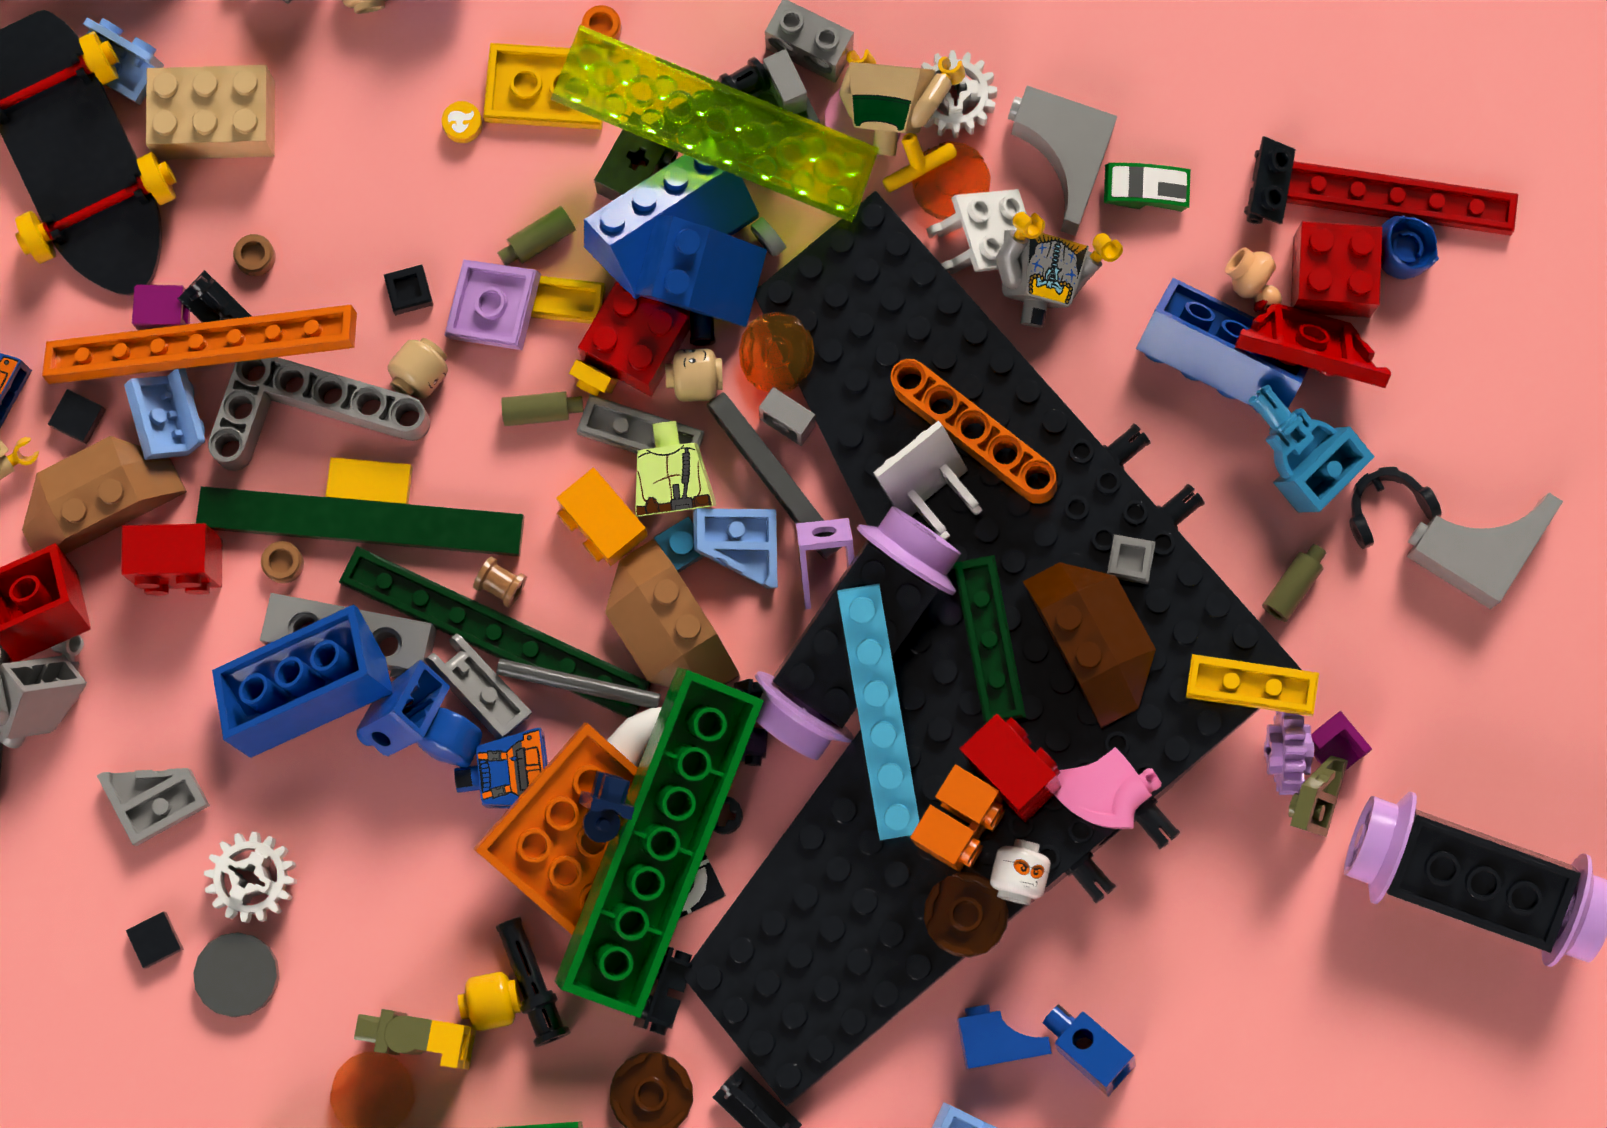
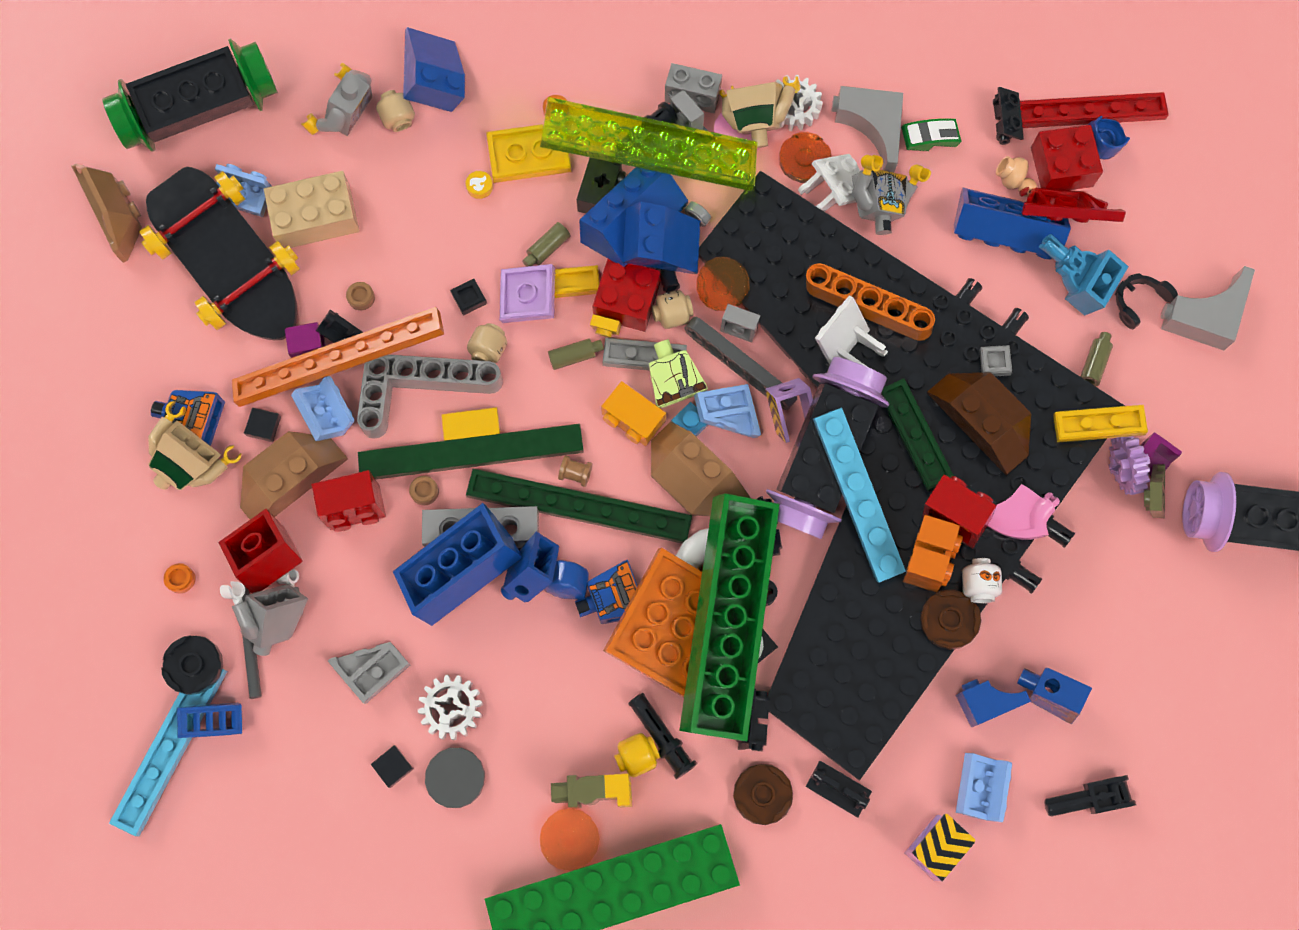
camera: 15 degrees left, 5 degrees down
(480, 689) = (579, 544): light grey hinge -> none
(578, 683) = (646, 526): dark grey bar -> none
(604, 805) = (689, 595): dark blue hips -> none
(918, 162) = (784, 147): yellow piece -> none

